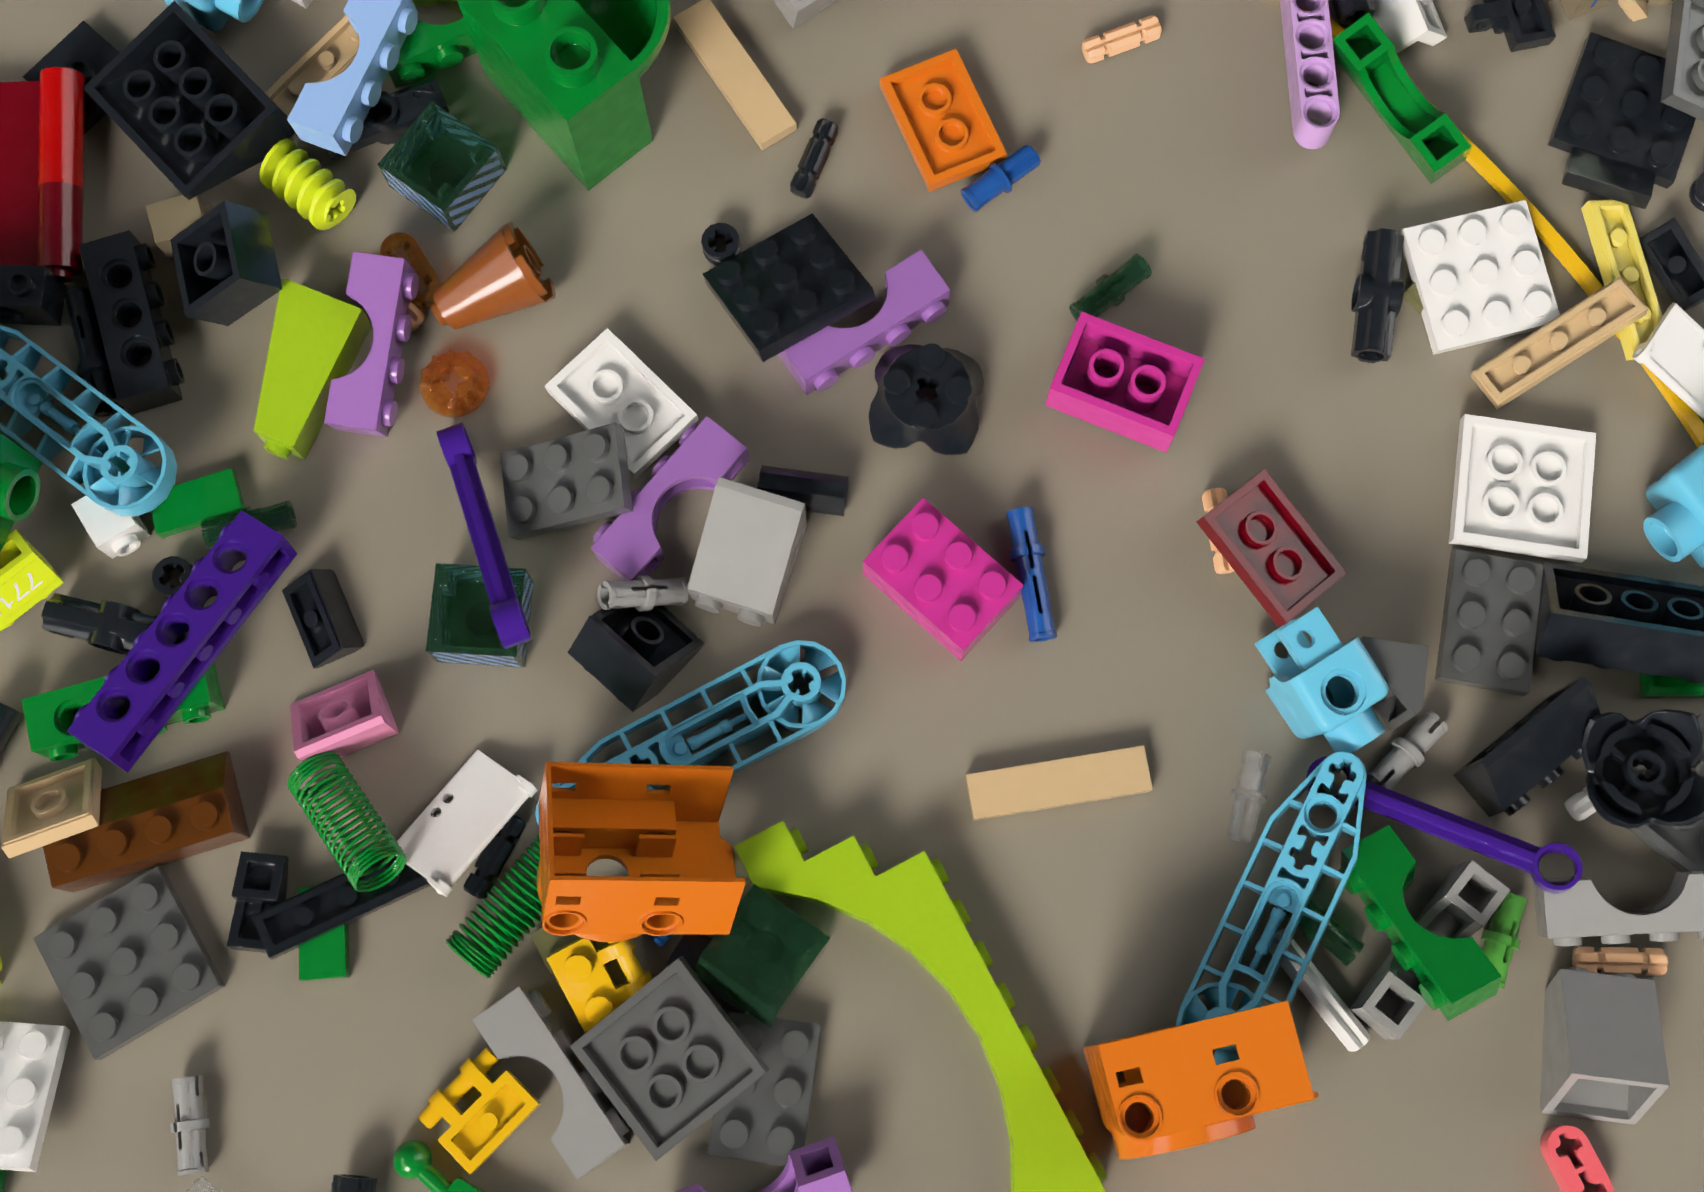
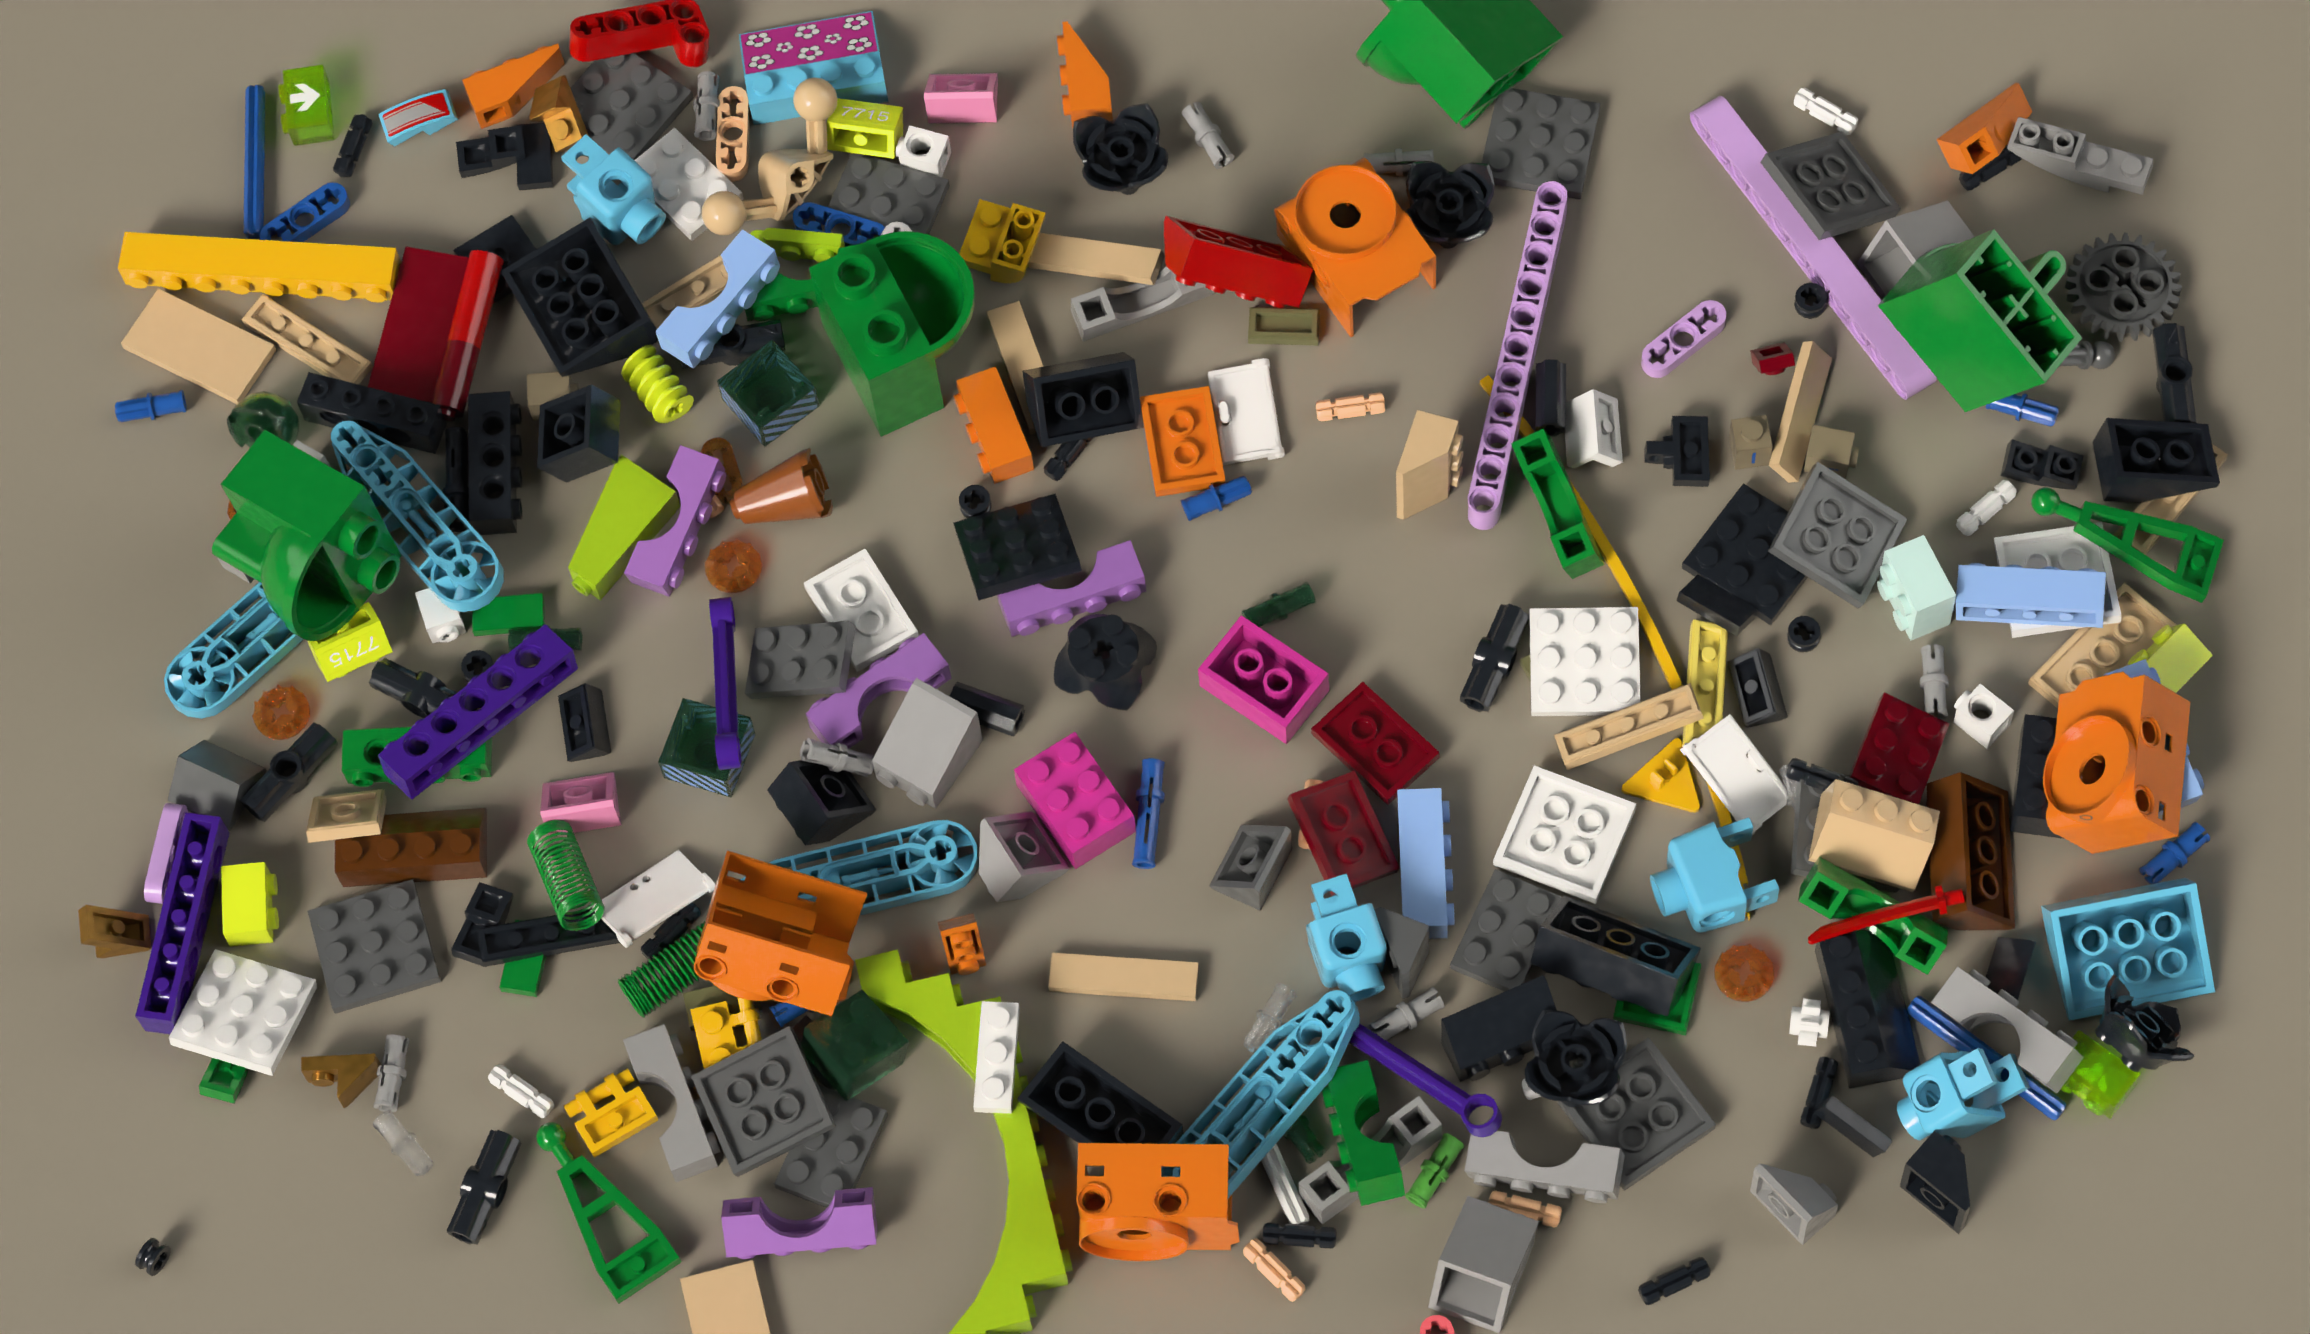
camera: 20 degrees right, 10 degrees down
(135, 1143) = (351, 1071): none -> pearl gold slope
(359, 1108) = (521, 1091): none -> white axle
(719, 148) = (993, 425): none -> orange brick
(817, 93) = (1083, 398): none -> black slope
(858, 790) = (962, 944): none -> orange slope
(891, 664) = (1017, 856): none -> light grey slope
(944, 933) = (996, 1057): none -> white plate
(1004, 62) = (1247, 401): none -> white door
(1089, 972) = (1094, 1104): none -> black slope
(1172, 607) = (1253, 863): none -> dark grey slope
(1247, 78) = (1428, 464): none -> tan slope
(1271, 428) = (1375, 743): none -> dark red plate
(1350, 1114) = (1274, 1269): none -> light nougat axle
(1364, 1061) = (1299, 1235): none -> black axle
(1371, 553) = (1423, 860): none -> light blue brick
(1610, 395) = (1665, 780): none -> yellow piece

